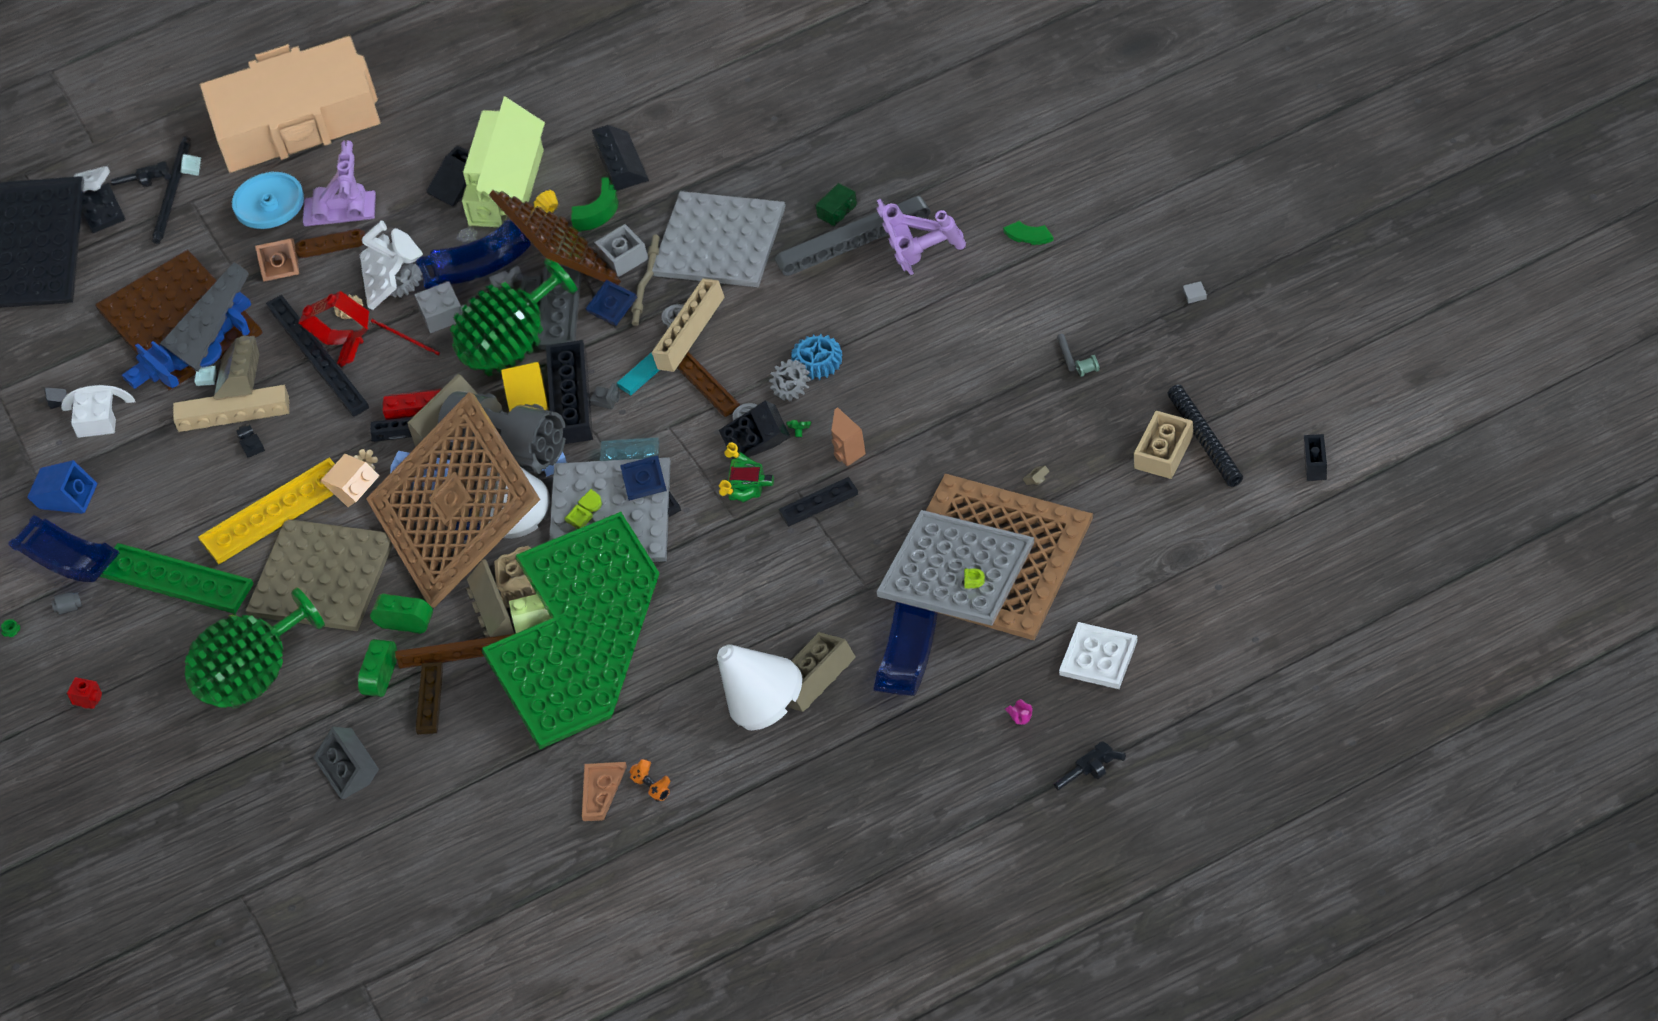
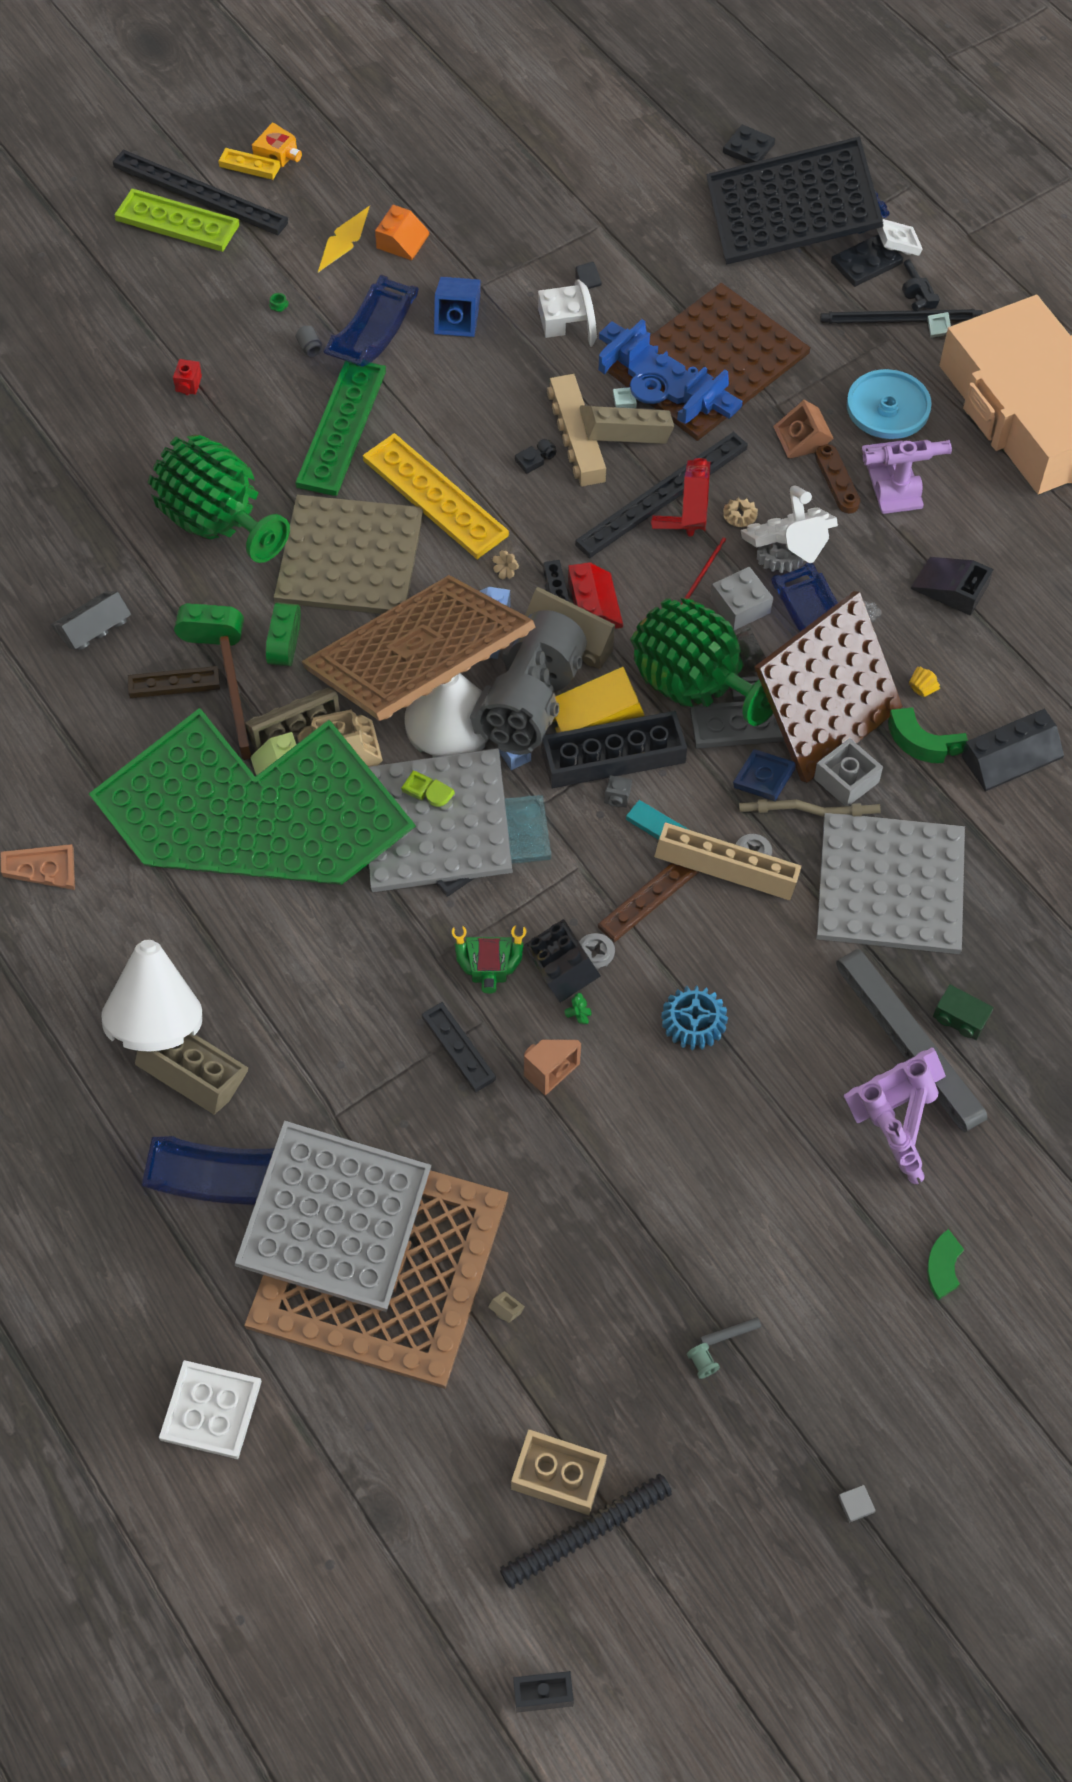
camera: 75 degrees right, 10 degrees up
(203, 322) = (680, 371): dark grey wing -> none
(349, 479) = (470, 552): light nougat slope -> none
(501, 159) = (971, 620): yellowish green panel -> none
(639, 775) = (57, 903): orange piece -> none
(643, 478) = (470, 841): dark blue plate -> none
(790, 371) = (648, 989): light grey gear -> none
(973, 578) = (304, 1235): lime tile -> none
(1020, 713) = (124, 1317): dark pink arm -> none
(1092, 763) = (41, 1410): black piece -> none

